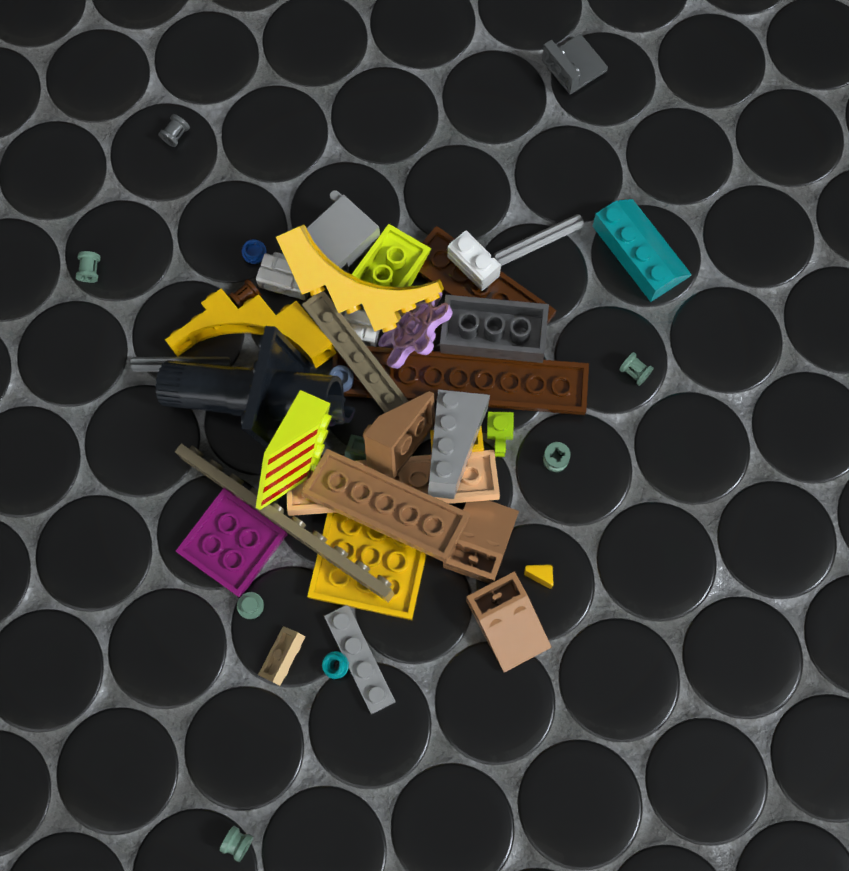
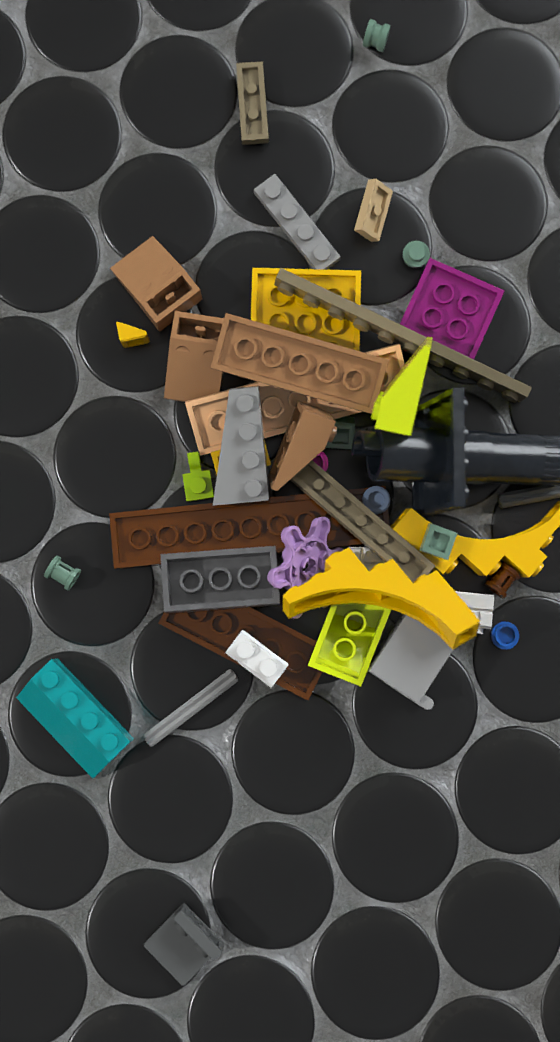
camera: 165 degrees right, 10 degrees up
(294, 322) = (438, 541): none -> sand green plate
(328, 665) = (322, 207): teal plate -> none
(379, 794) = (252, 103): none -> dark tan plate
(556, 462) = (135, 466): sand green wheel -> none

